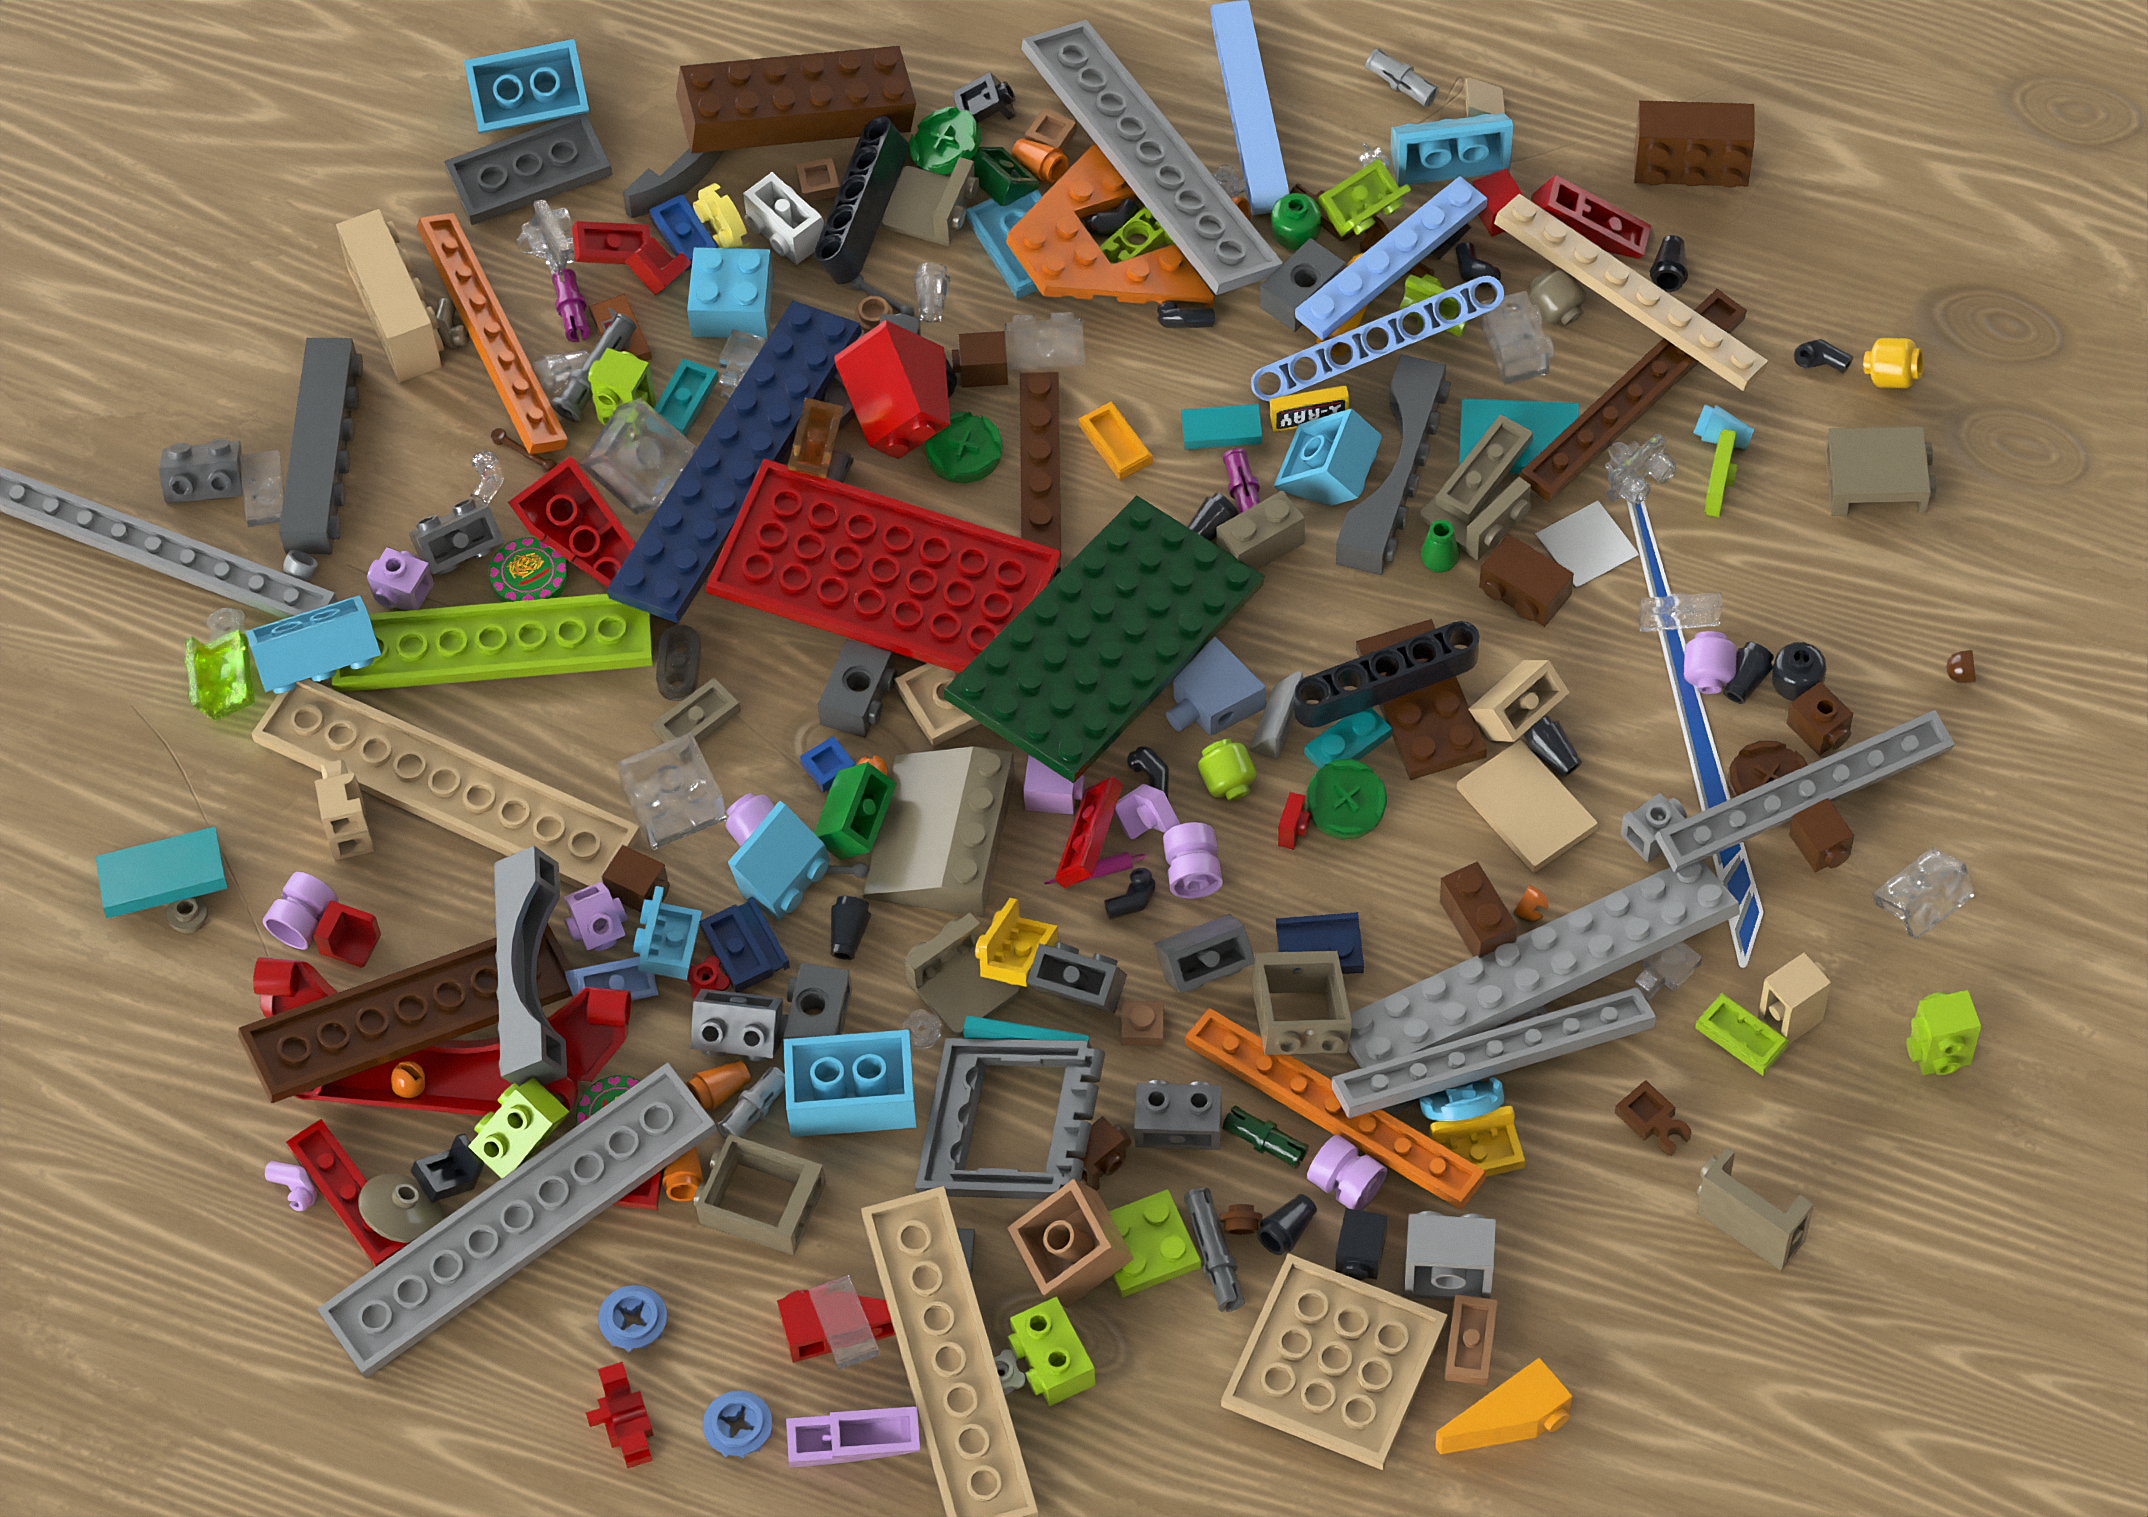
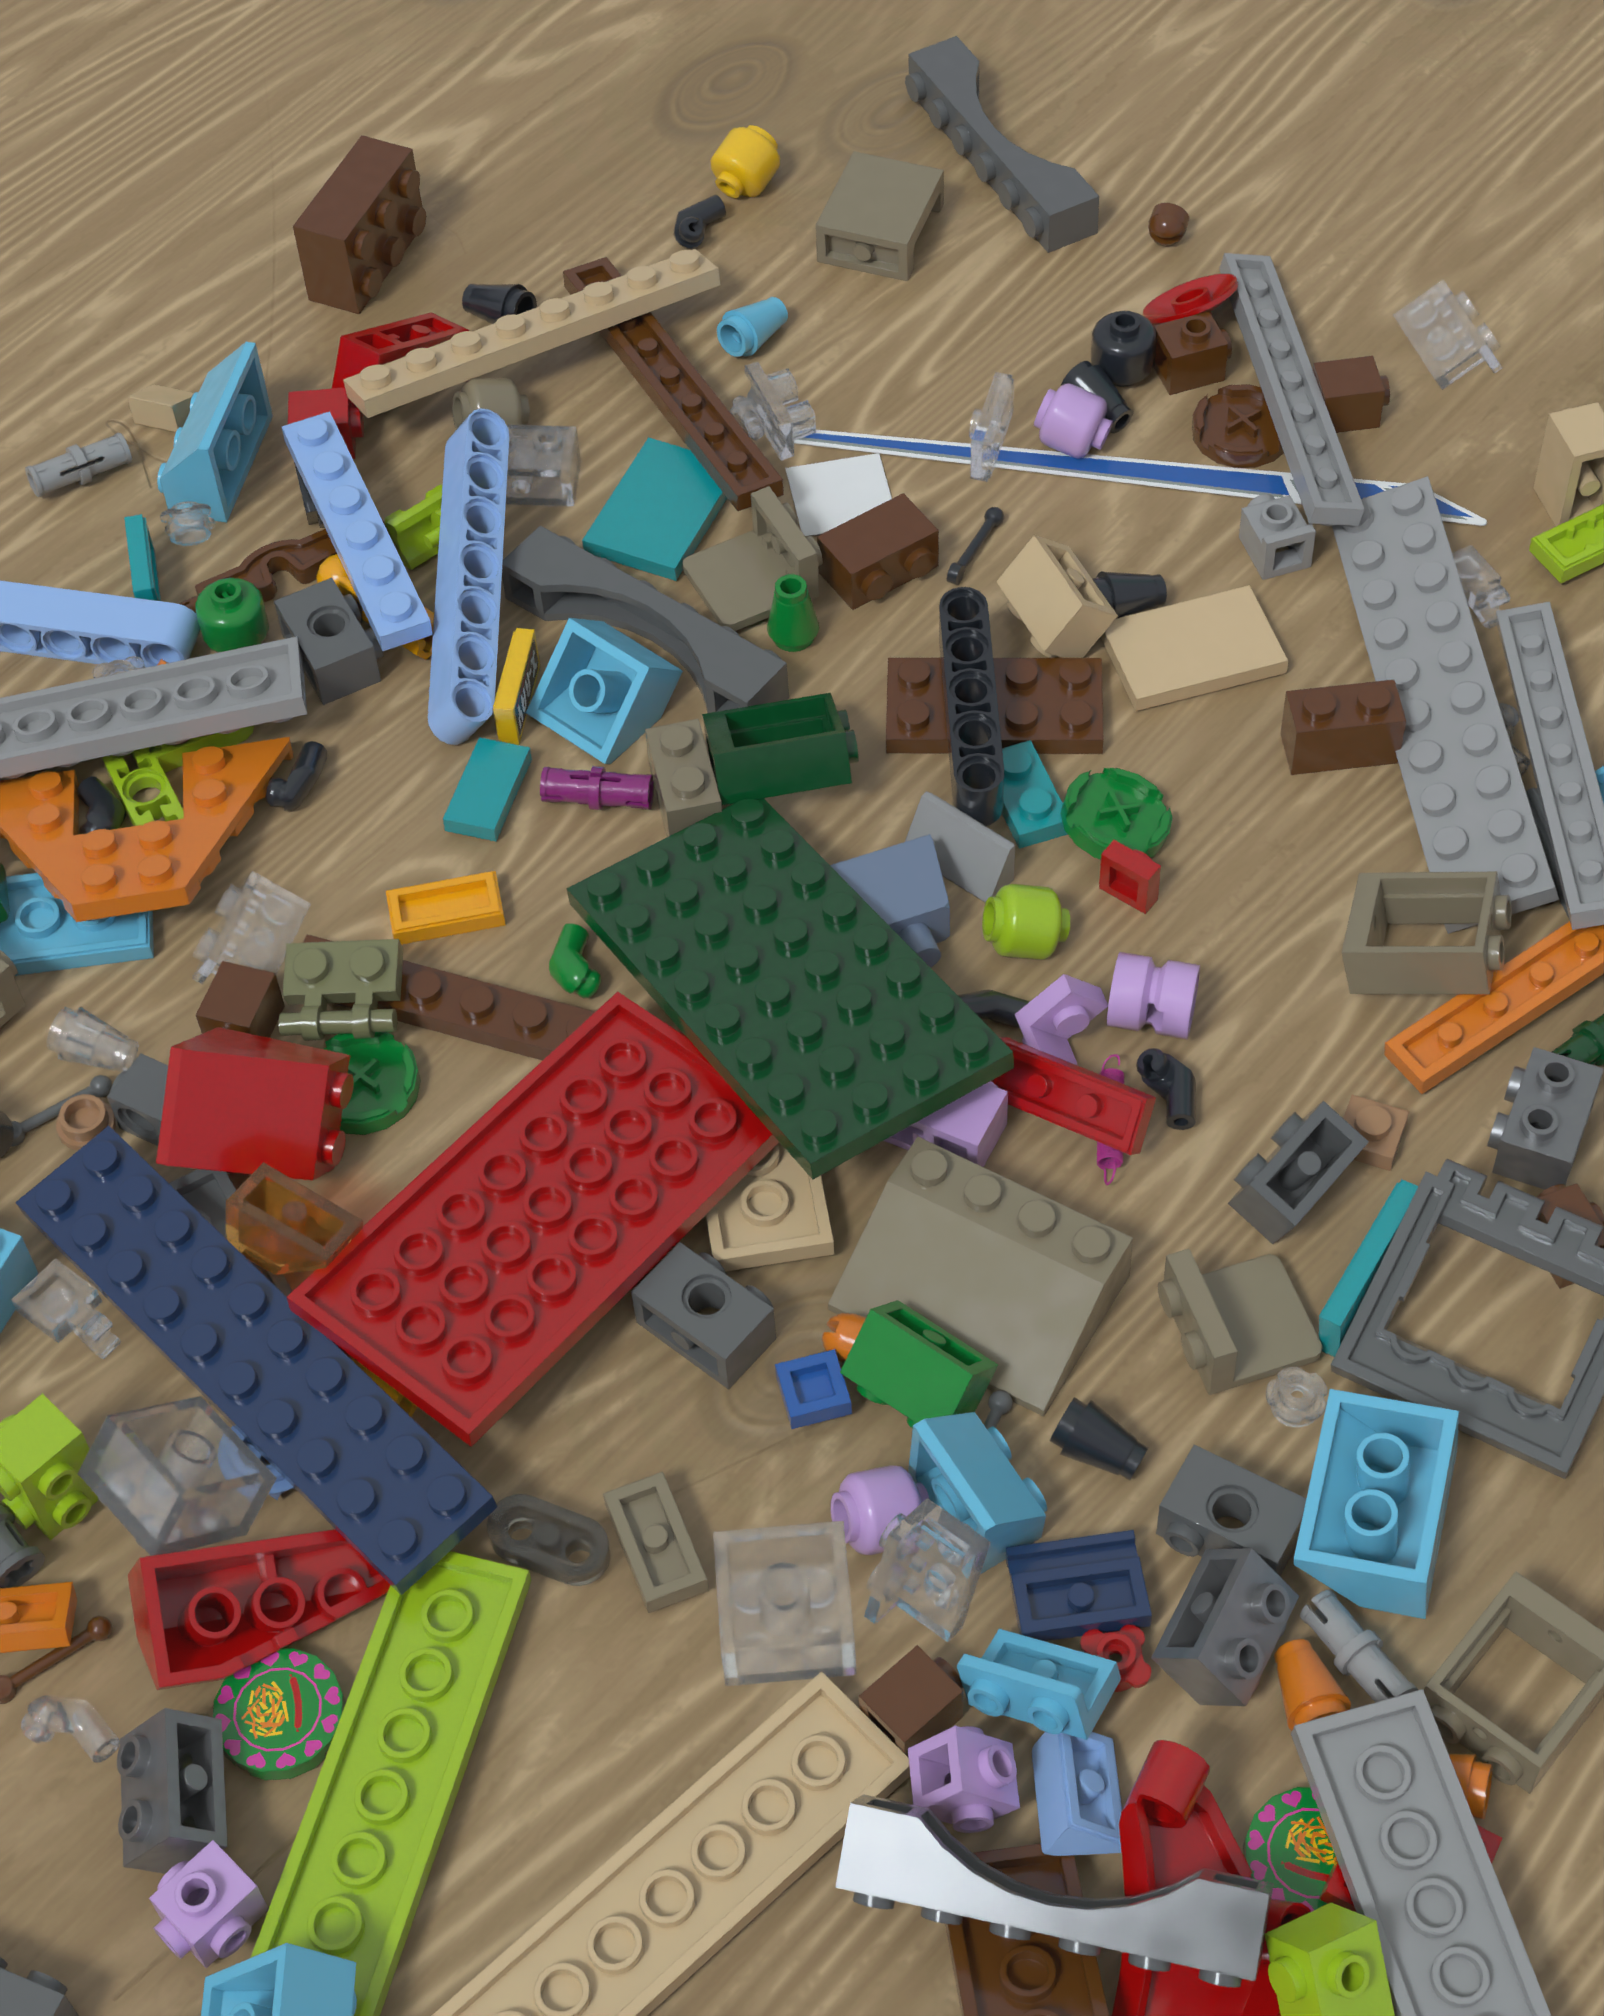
camera: 70 degrees left, 5 degrees down
(686, 394) = (79, 1389): teal plate -> none
(713, 839) = (927, 1569): none -> clear bracket
(1011, 945) = (1221, 1231): yellow bracket -> none
(1025, 398) = (341, 974): none -> olive plate
(1091, 524) = (569, 966): none -> green arm
(1205, 953) = (1306, 1019): dark grey brick -> none
(1211, 514) = (625, 826): black cone -> none
(1310, 543) = (780, 748): none -> dark green window
(1319, 154) = (142, 559): none -> teal tile
(1324, 933) = (1314, 907): dark blue plate -> none
(1362, 197) = (248, 536): lime bracket -> none
(1471, 267) = (400, 479): black arm -> none
(1484, 468) = (706, 537): dark tan plate -> none
(1528, 903) = (1338, 668): orange hinge -> none
(1537, 638) = (993, 517): none -> black hinge
(1722, 473) = (815, 341): lime plate -> none
(1876, 702) = (1191, 298): none -> red dish
(2048, 474) = (1045, 196): none -> dark grey arch

